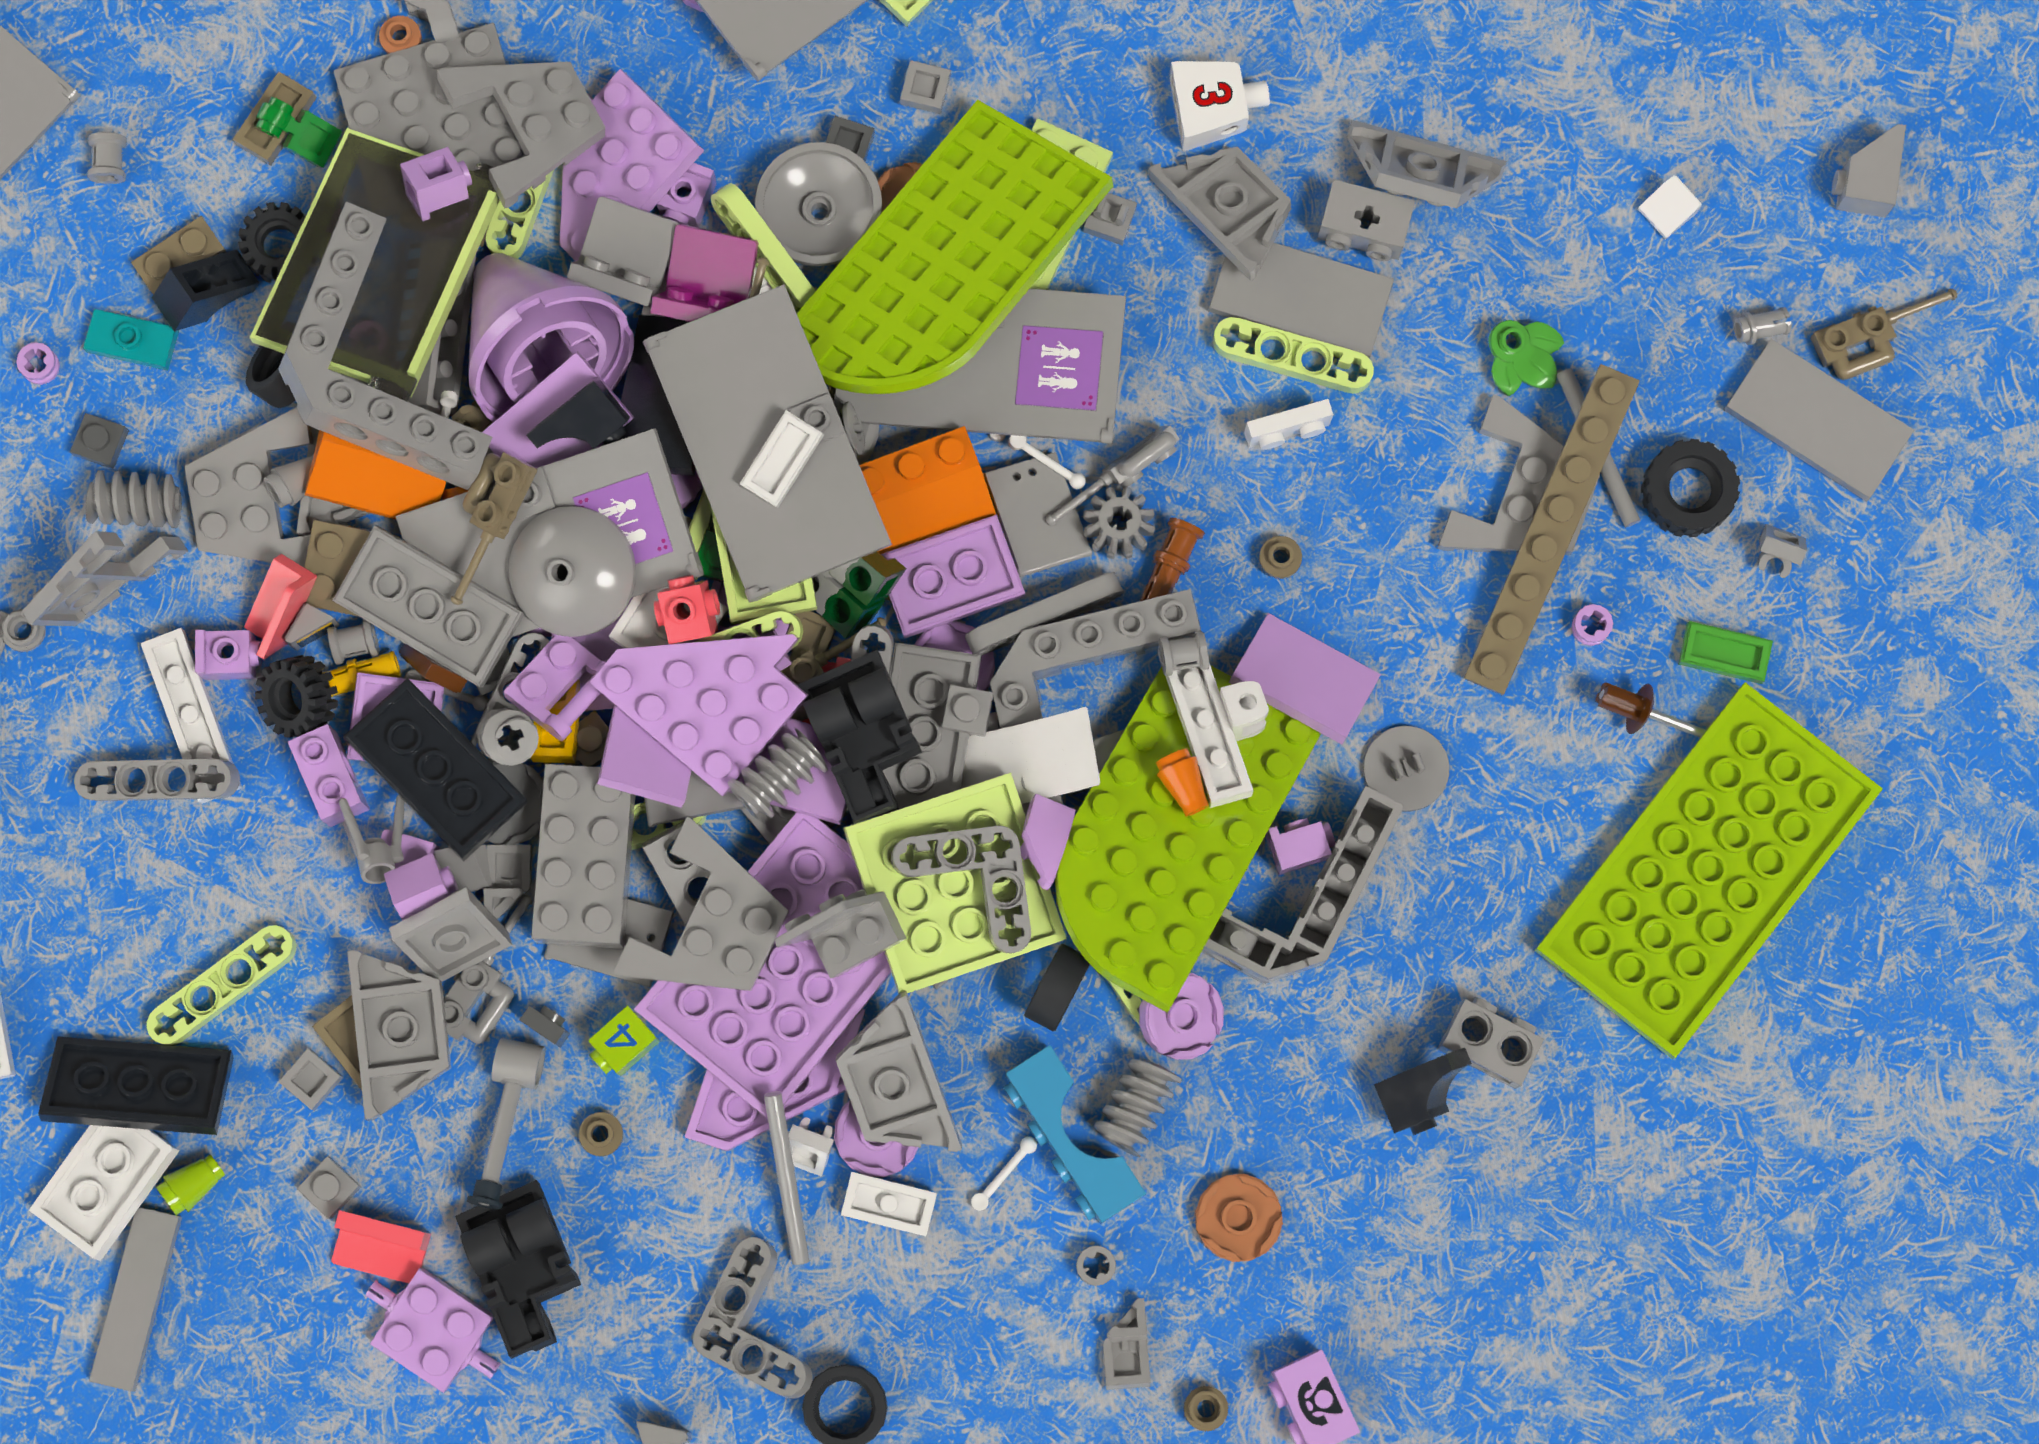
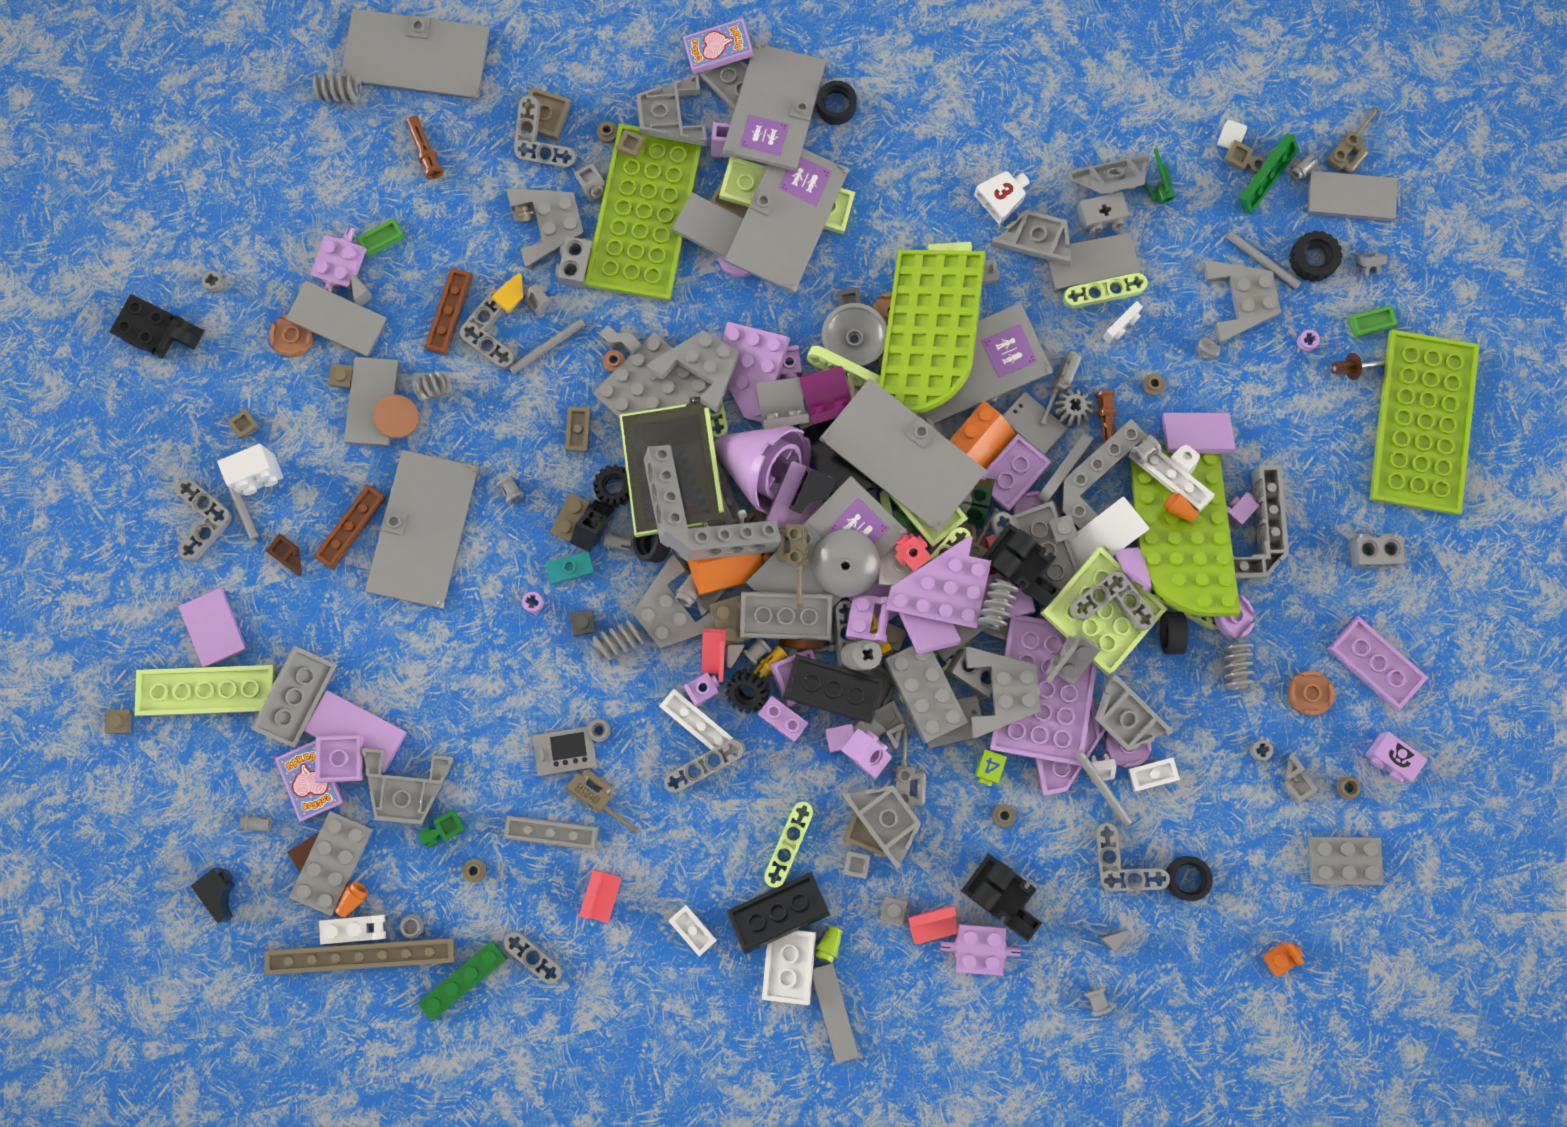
camera: 25 degrees left, 0 degrees up
(92, 581) = (624, 686): light grey wing -> none
(230, 338) = (617, 542): none -> light grey pin
(308, 135) = (599, 428): green plate -> none
(374, 854) = (830, 744): light grey plant -> none
(435, 181) = (679, 417): lavender brick -> none
(450, 935) = (887, 762): light grey plate -> none
(517, 1067) = (949, 806): light grey piece -> none
(546, 1024) = (950, 778): dark grey plate -> none
(782, 459) = (916, 458): white tile -> none
(925, 87) = (869, 257): light grey plate -> none
(980, 1200) = (1191, 750): white hinge -> none
(1076, 480) = (1042, 398): white hinge -> none
(1104, 1183) = (1192, 683): dark azure arch -> none
(1382, 1231) = (1377, 663): none -> lavender tile
(1407, 766) = (1263, 447): light grey piece -> none
(1410, 547) = (1208, 349): none -> light grey piece
(1420, 1093) = (1359, 591): black arch -> none
(1493, 241) = (1164, 191): none -> green plant
(1528, 360) = (1209, 236): bright green plate -> none
(1551, 529) = (1268, 306): dark tan plate -> none
(1661, 249) = (1240, 157): none -> dark tan plate
(1693, 304) = (1268, 173): none -> green plate
(1871, 176) = (1313, 75): light grey slope -> none

